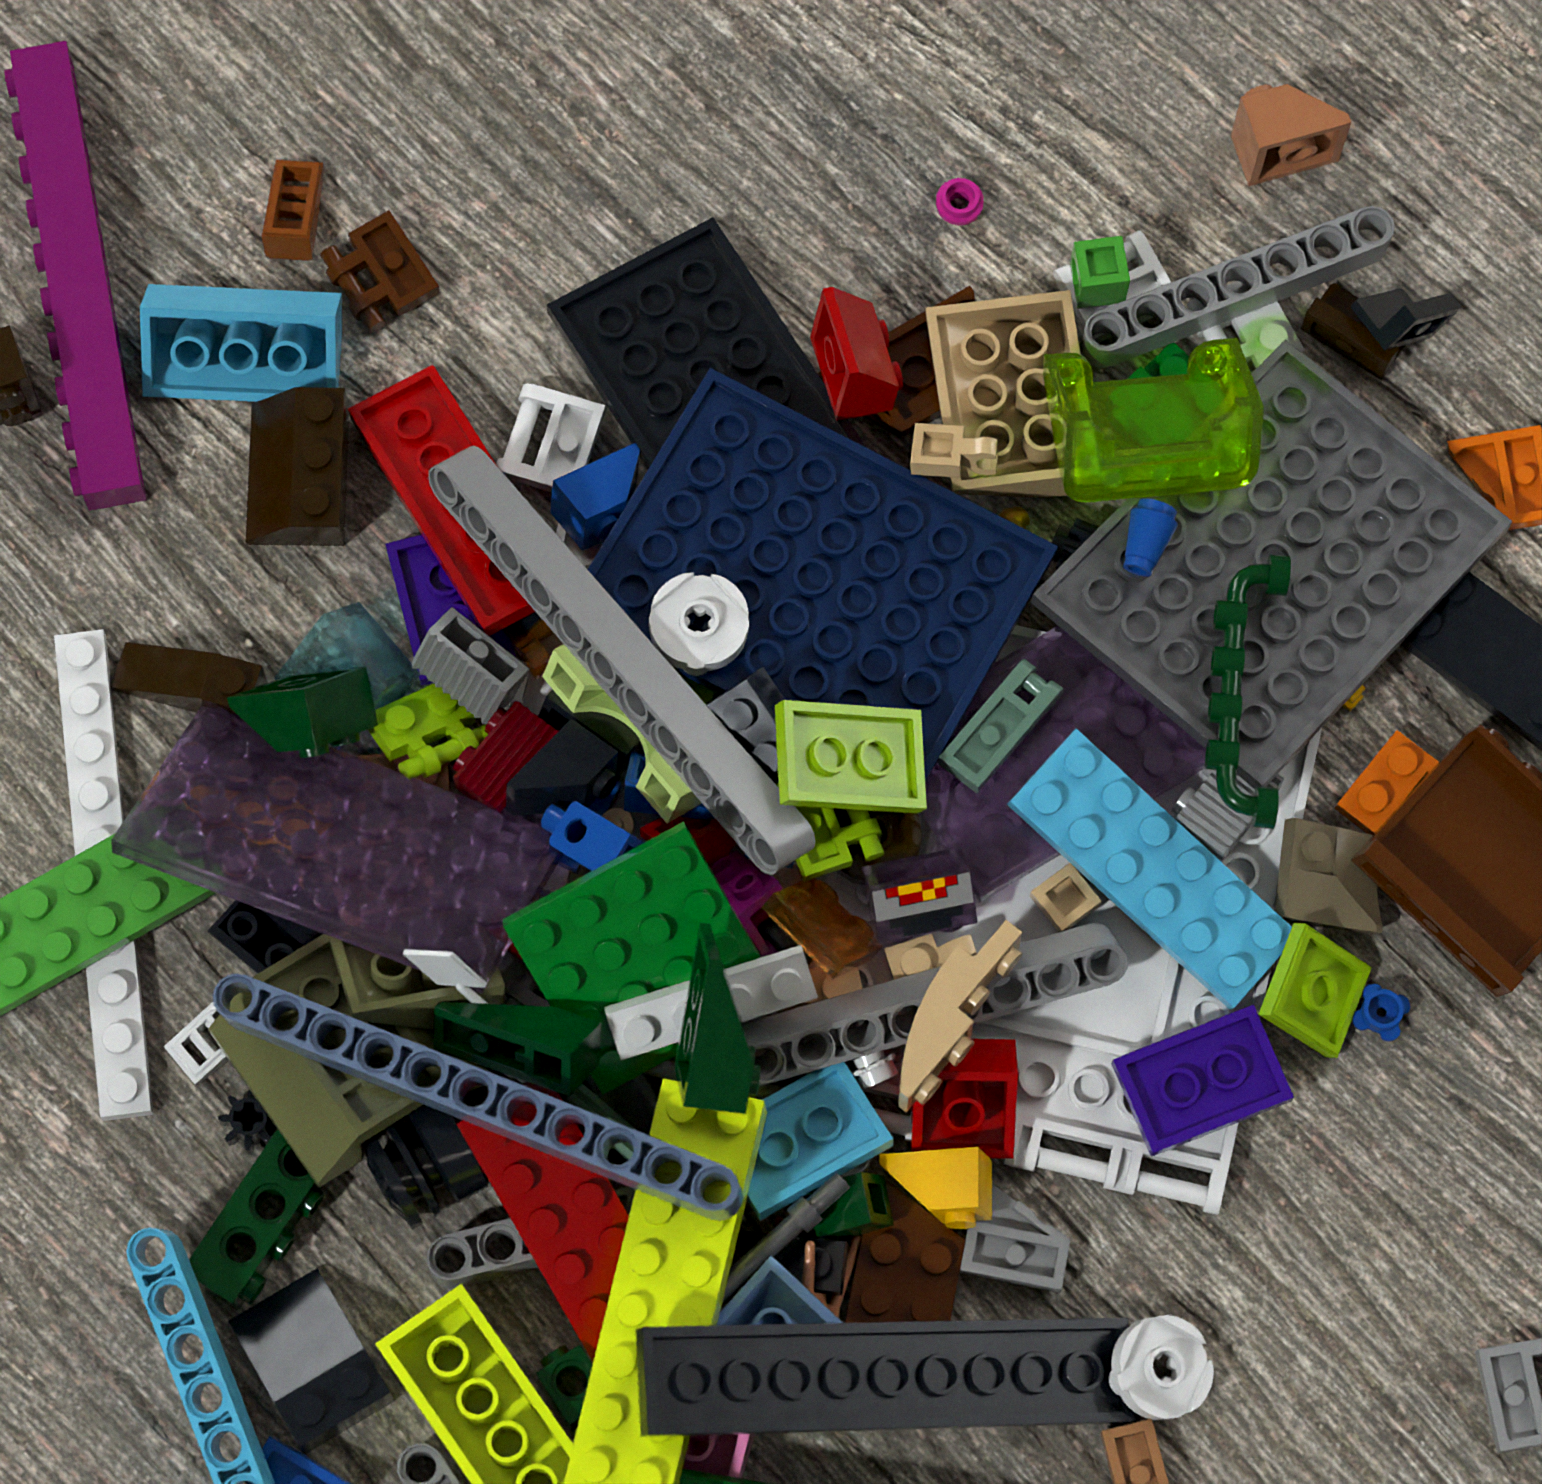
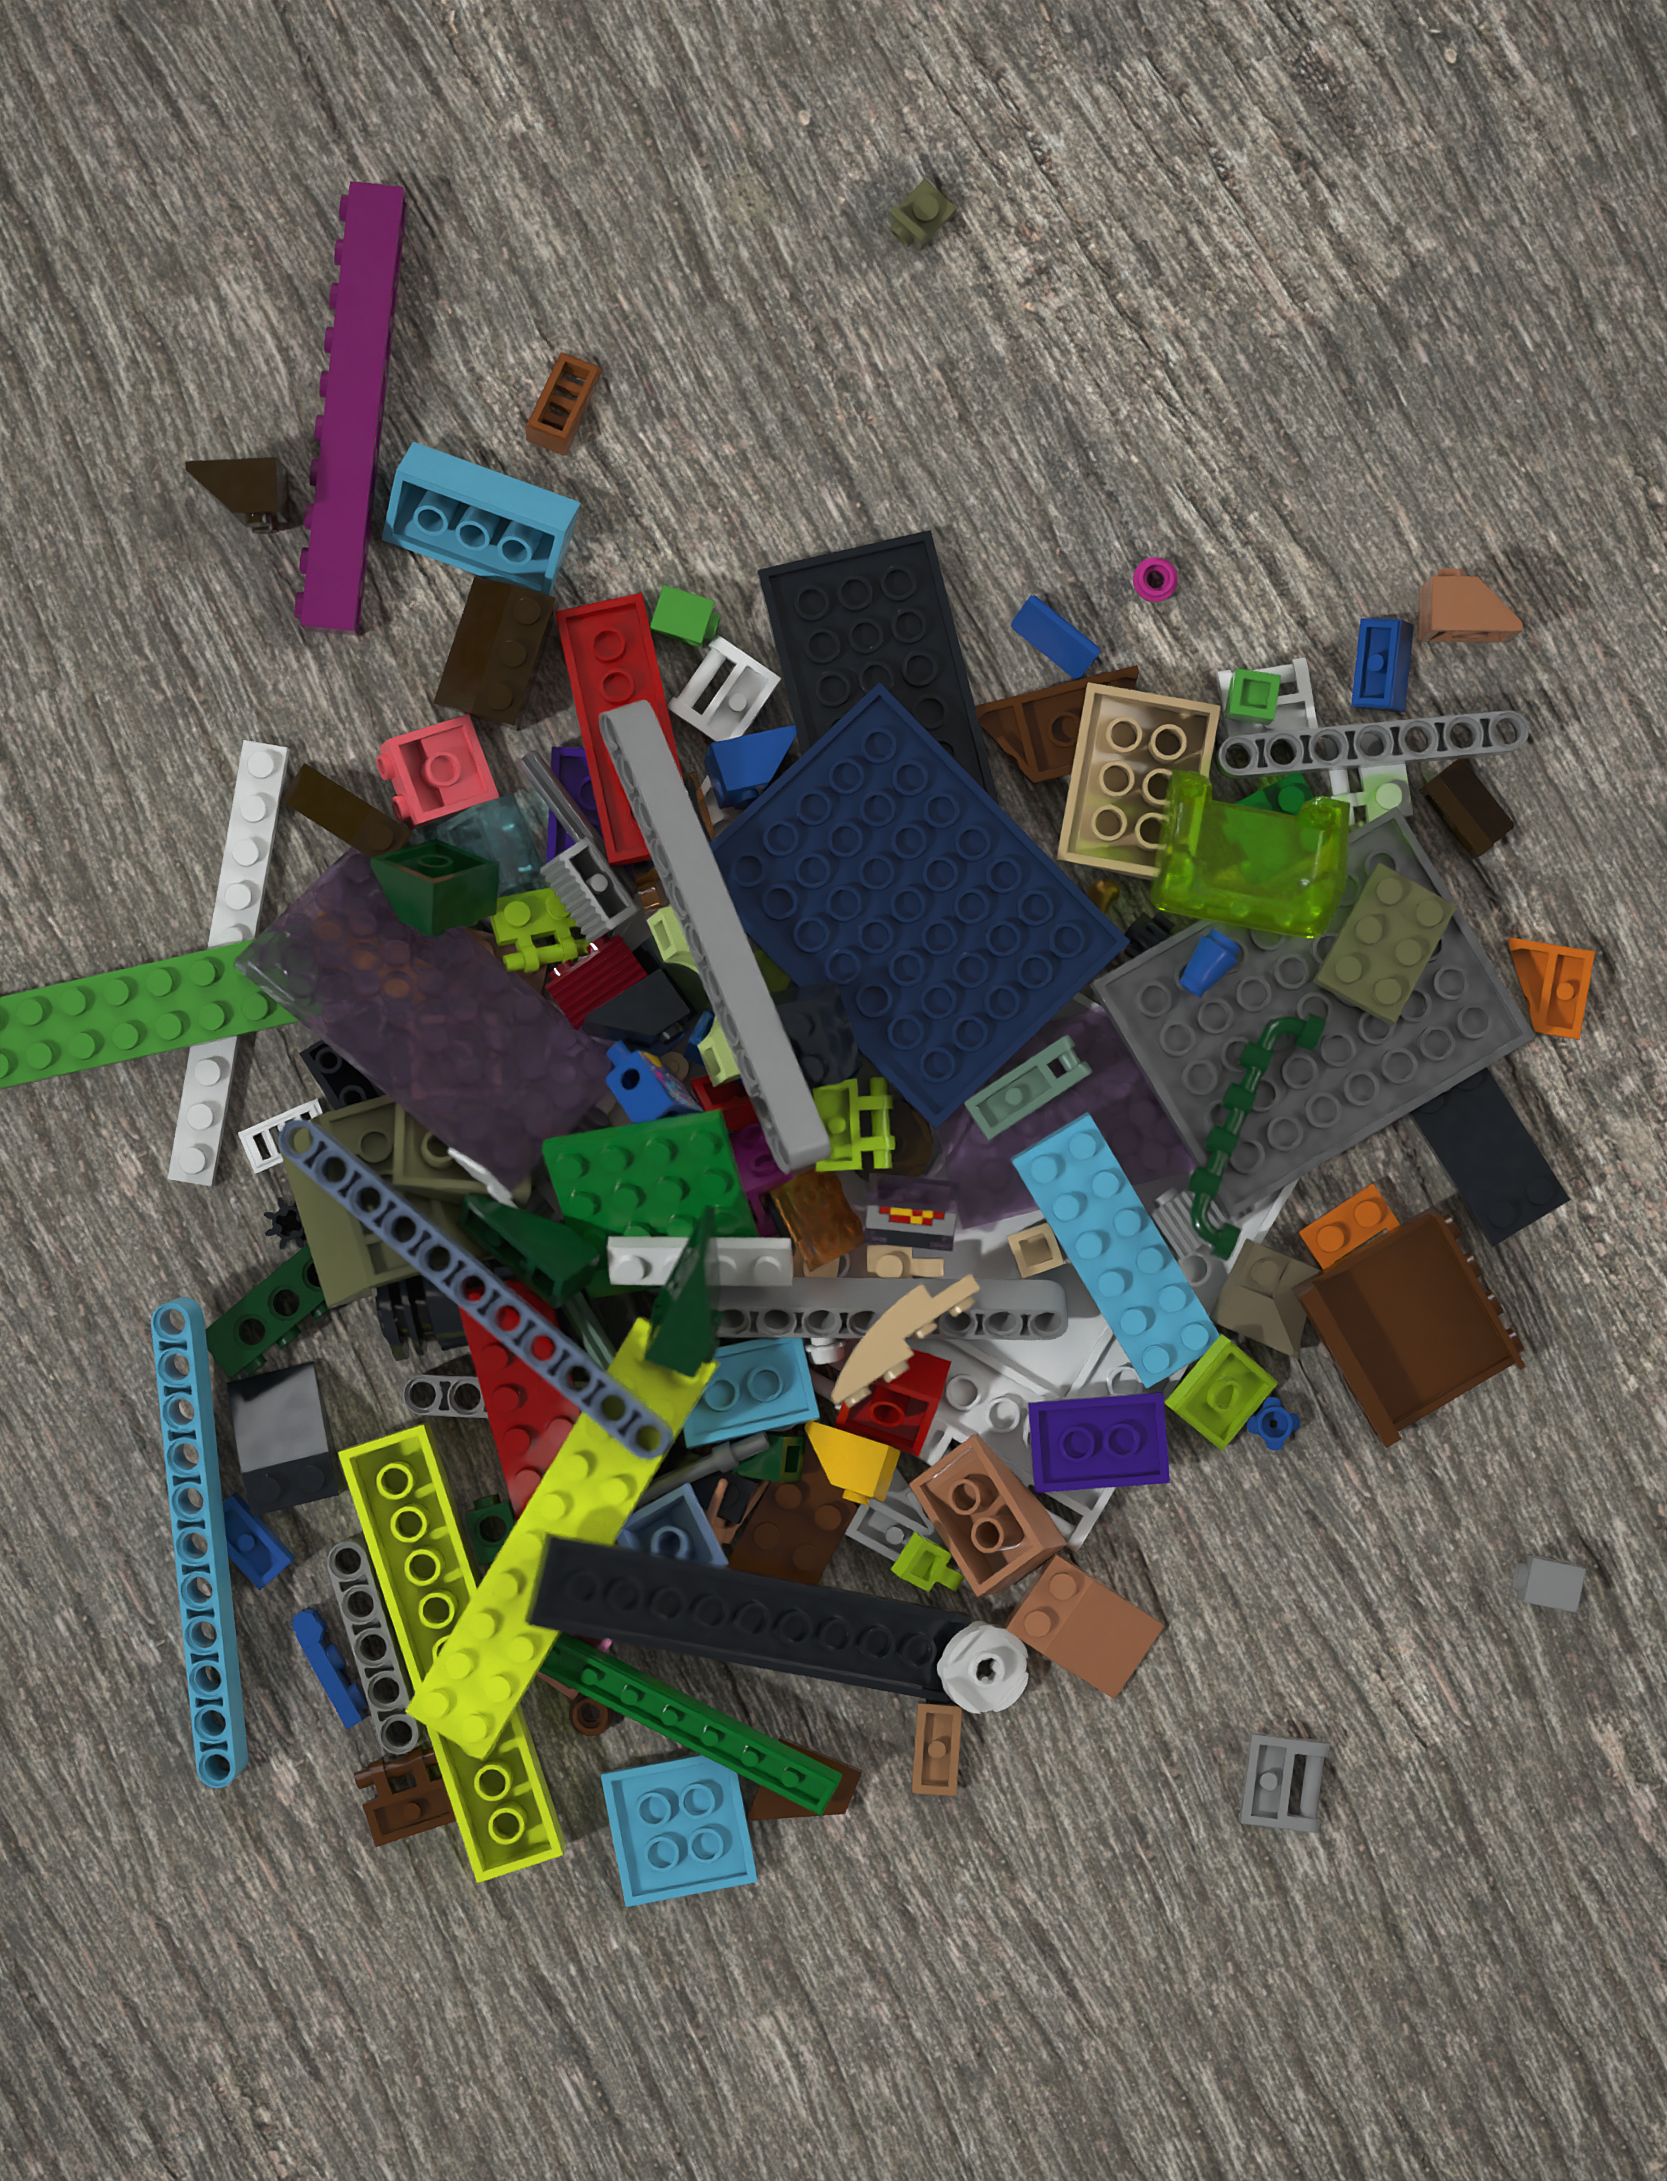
camera: 20 degrees right, 15 degrees up
(267, 604) = (436, 772): none -> coral plate
(392, 263) = (634, 484): reddish brown plate -> none
(409, 590) = (566, 809): none -> flat silver axle
(485, 376) = (685, 617): none -> bright green brick
(700, 595) = (785, 946): white plate -> none
(850, 757) = (883, 1090): lime plate -> none
(854, 355) = (1011, 709): red slope -> none
(890, 287) = (1055, 637): none -> blue slope
(944, 449) = (1059, 824): tan plate -> none
(1058, 1270) = (925, 1563): none -> lime plate
(1108, 1199) = (986, 1517): none -> nougat slope
(1219, 215) = (1382, 664): none -> blue slope
(1253, 1289) = (1083, 1625): none -> nougat slope
(1323, 471) = (1385, 944): none -> olive plate
(1399, 321) = (1505, 814): black panel -> none

